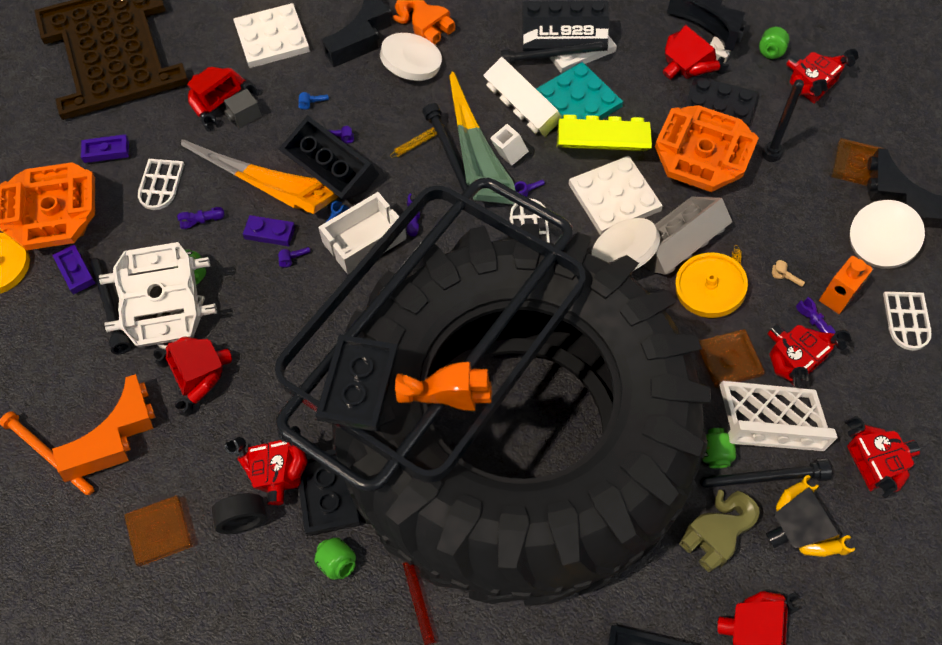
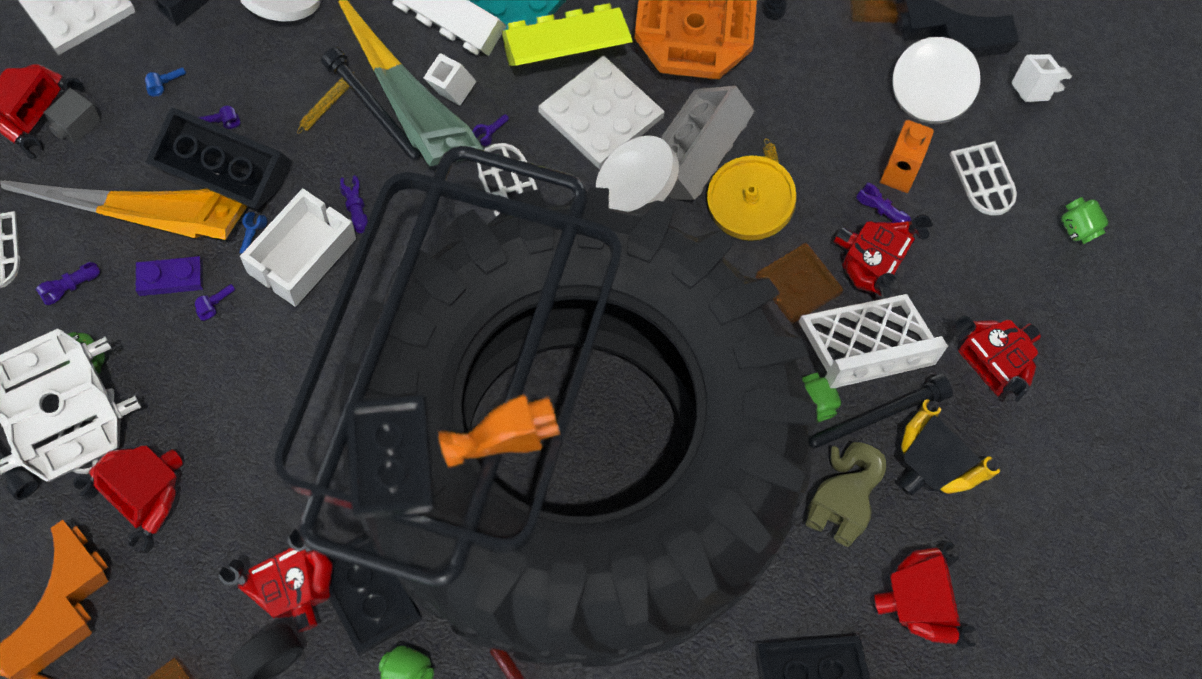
camera: 25 degrees left, 5 degrees up
(780, 271) = (826, 159): tan hand -> none

